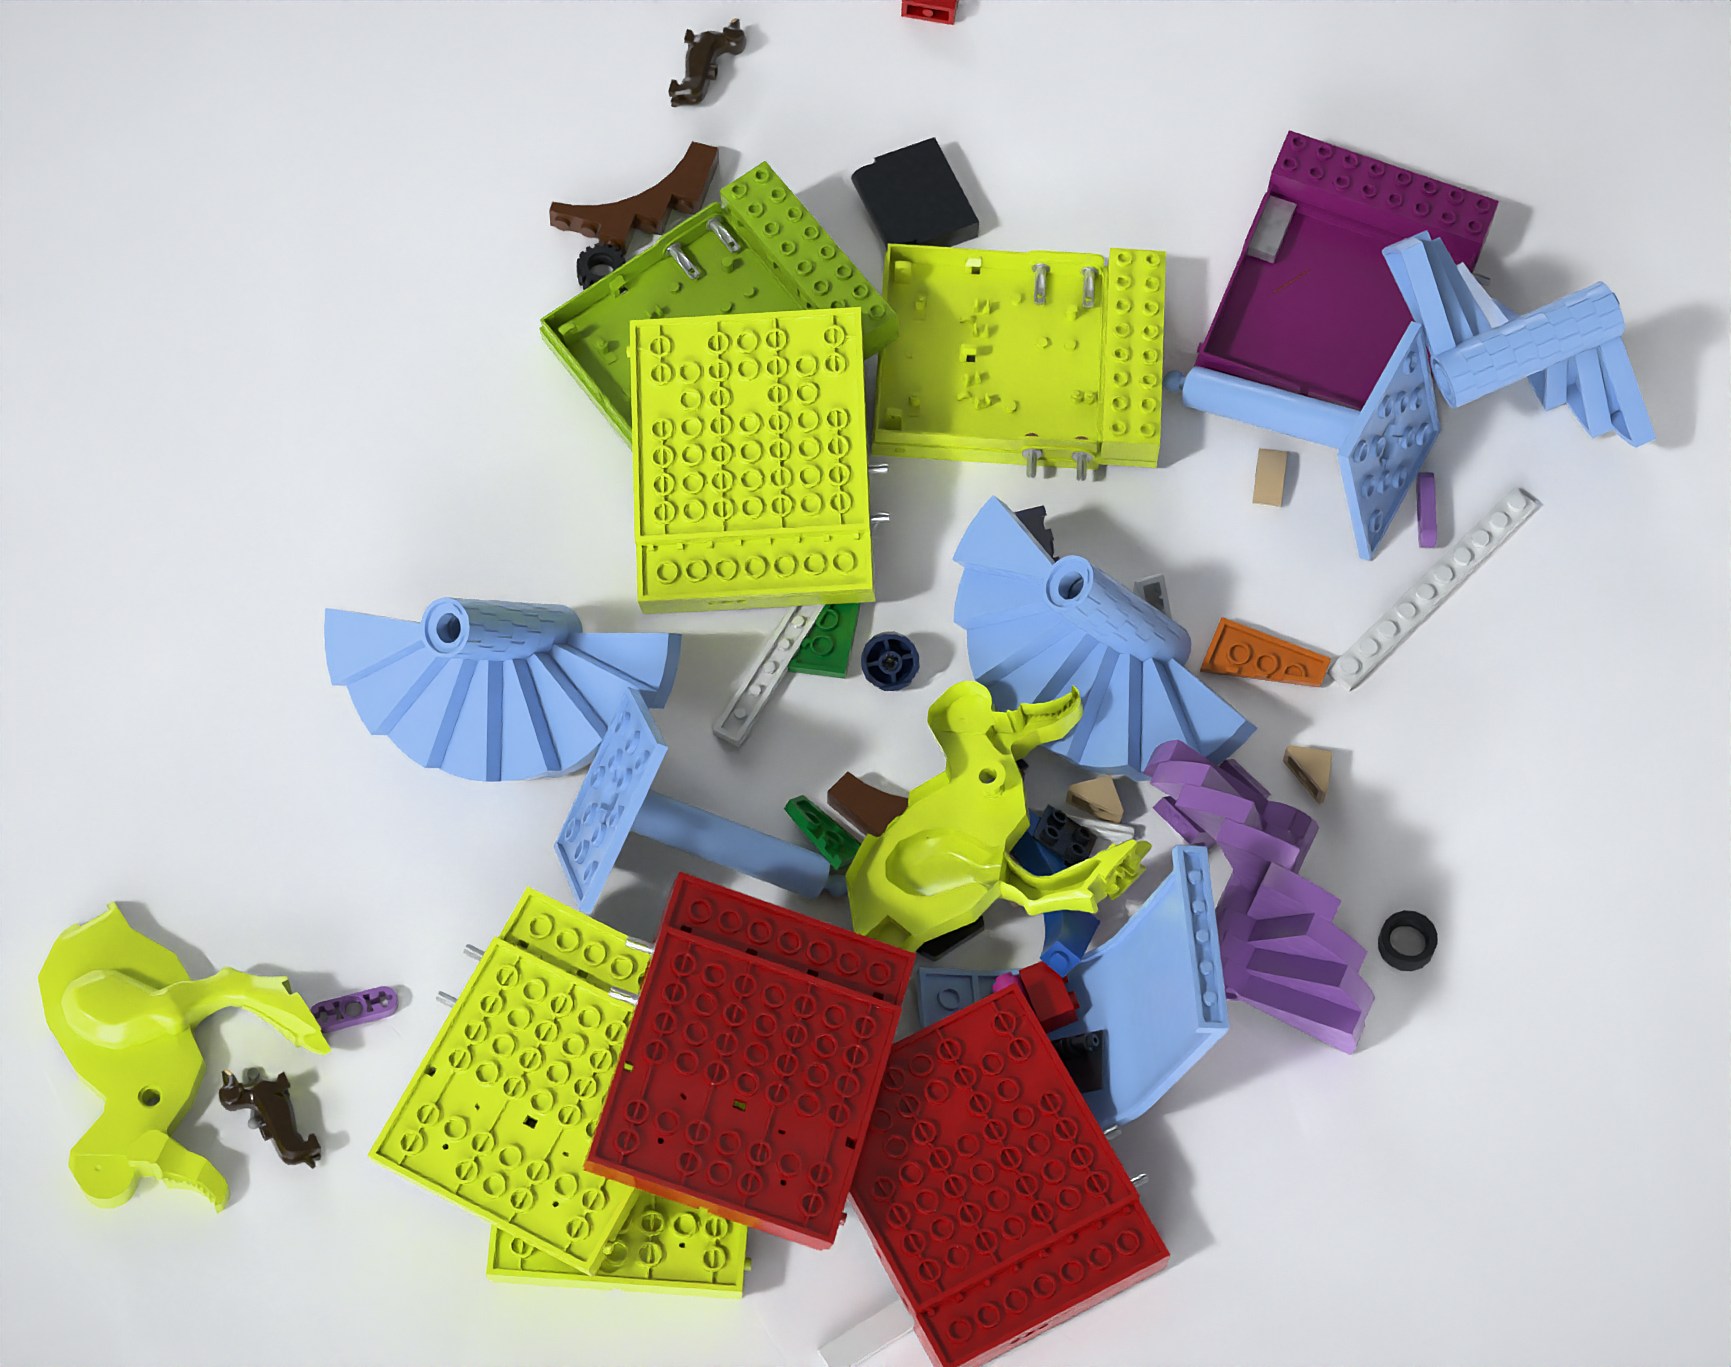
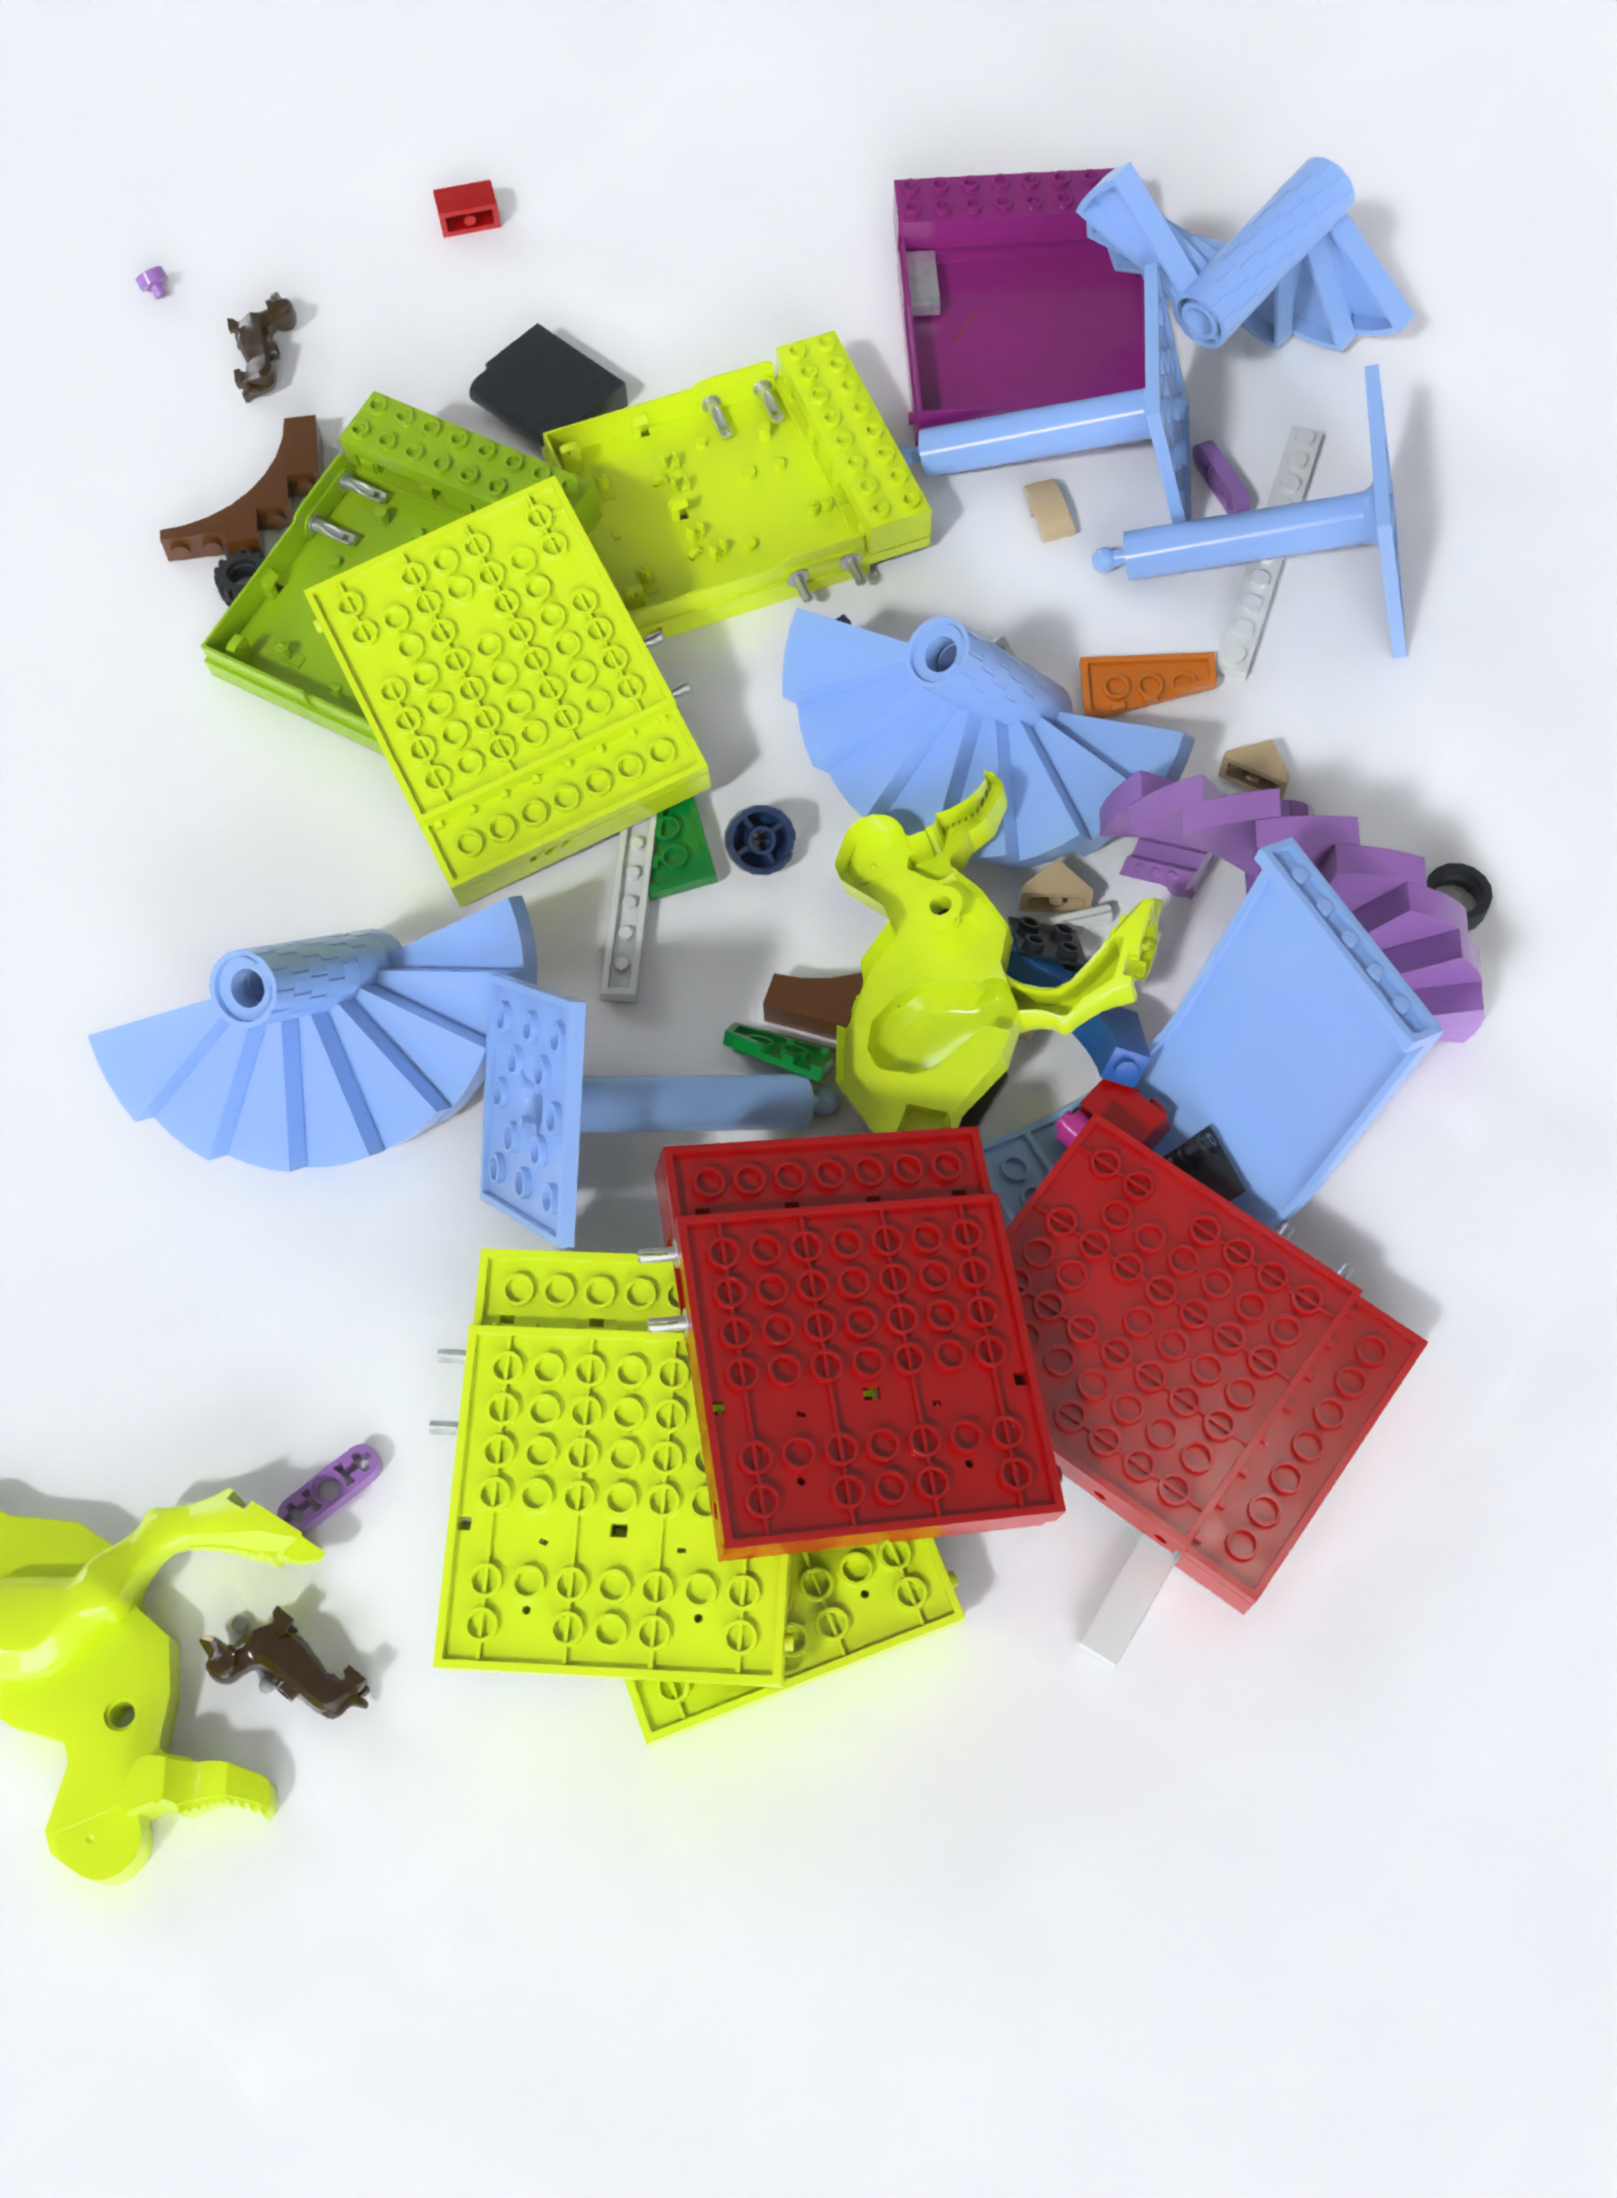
camera: 20 degrees left, 0 degrees up
(1501, 609) = (1282, 530): none -> light blue piece

